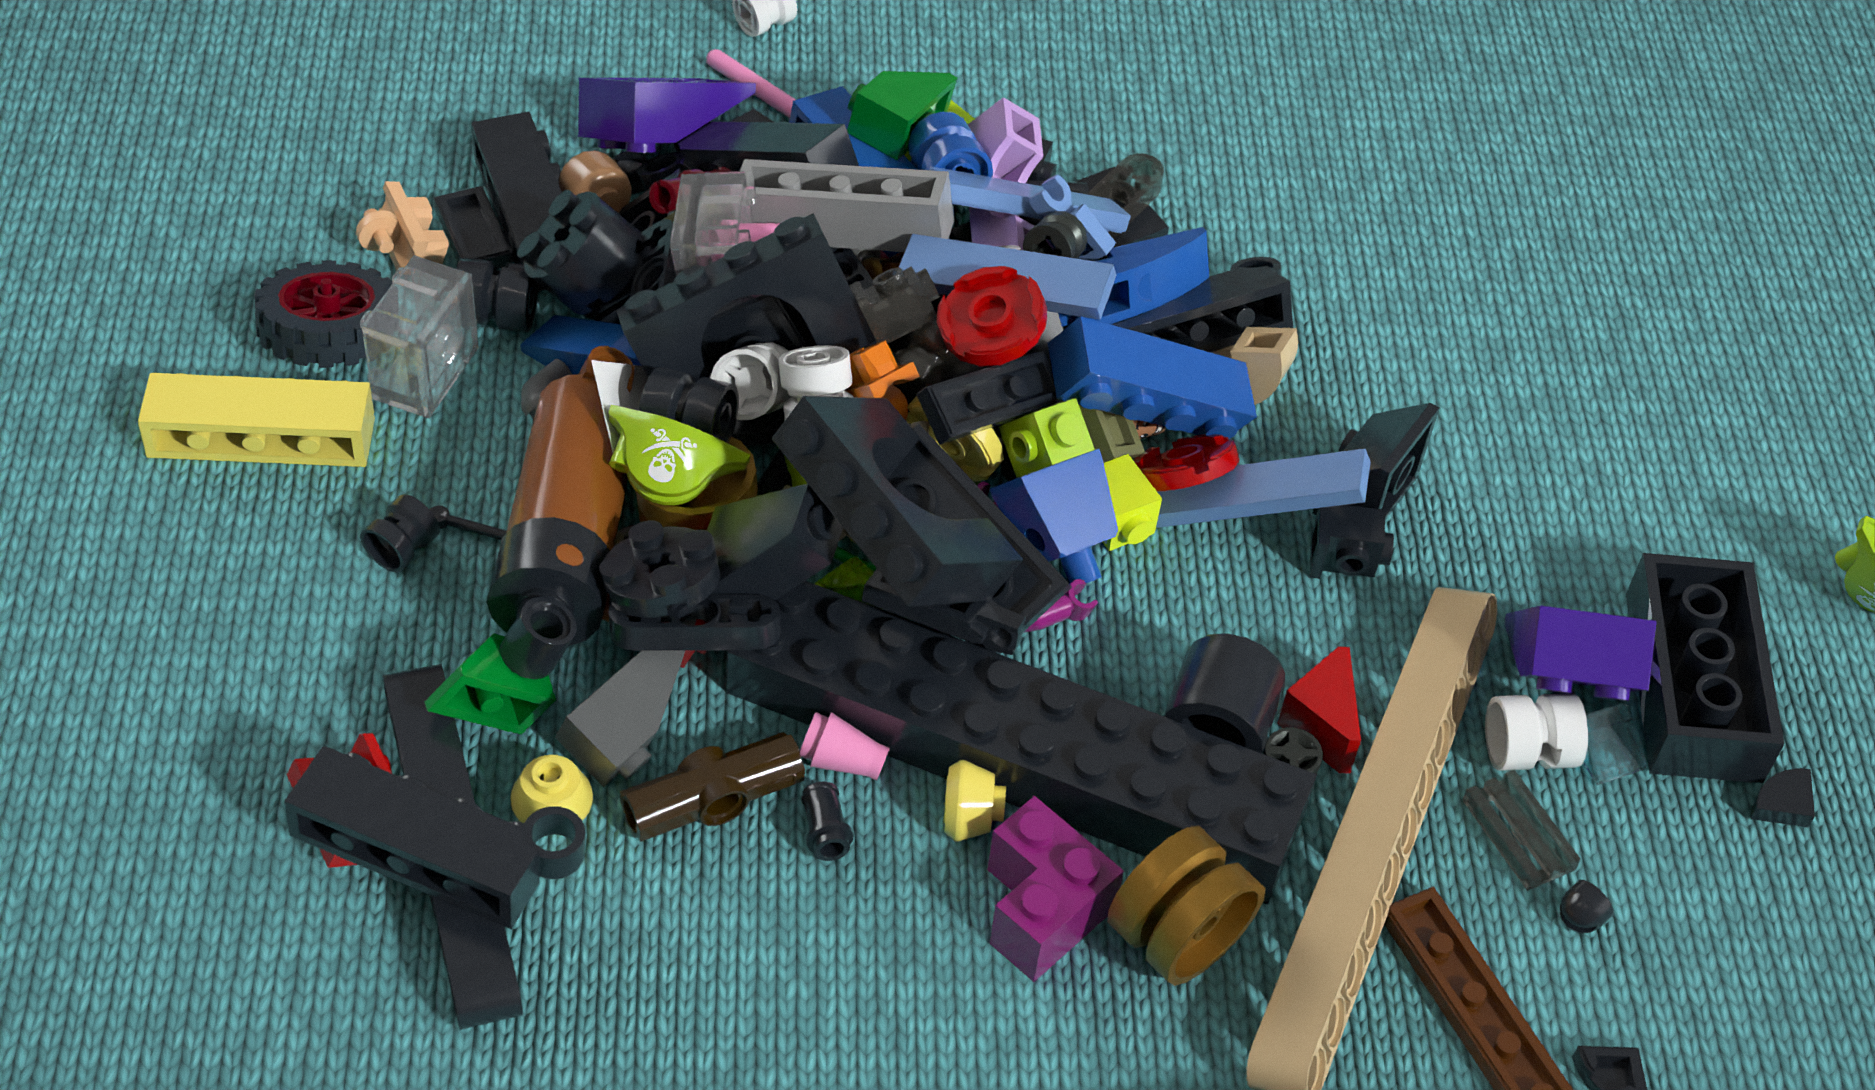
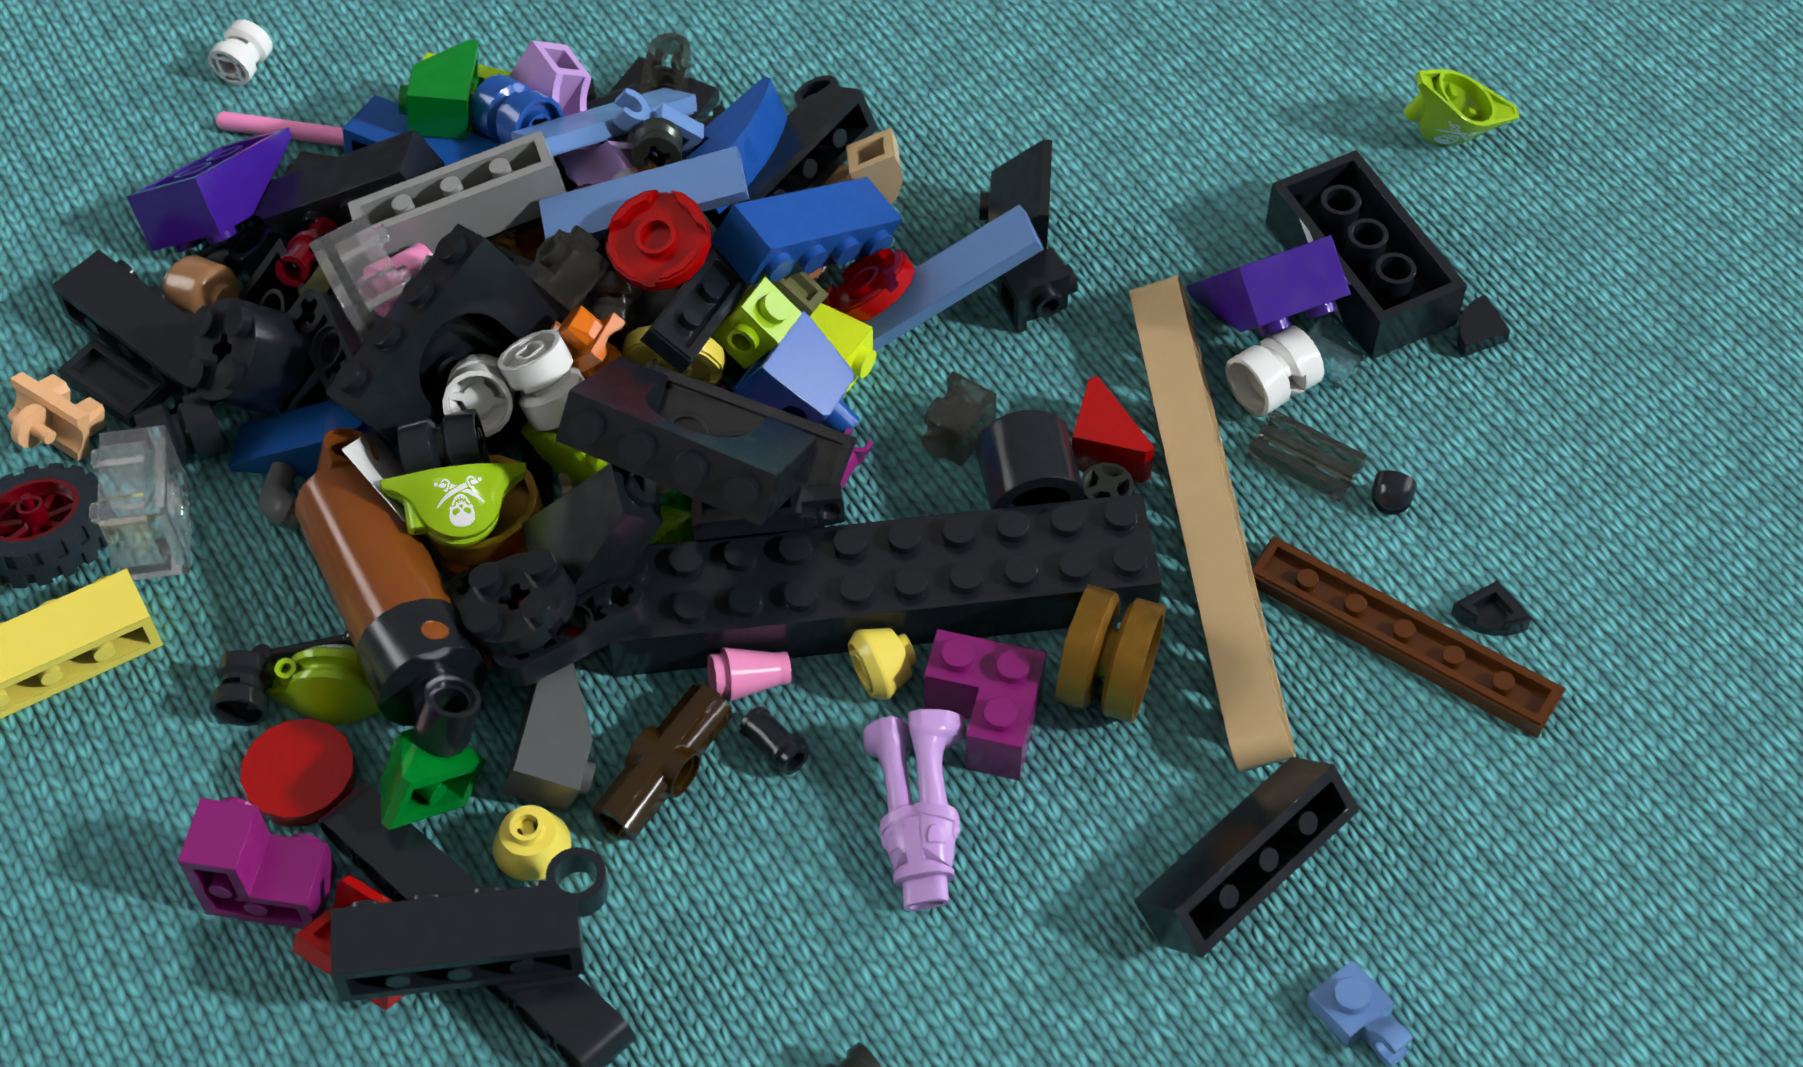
camera: 25 degrees left, 5 degrees up
(294, 682) = (253, 874): none -> magenta brick
(399, 627) = (298, 771): none -> red tile
(463, 563) = (324, 685): none -> lime hat
(903, 975) = (923, 834): none -> lavender piece
(1188, 618) = (958, 419): none -> clear smoke brick

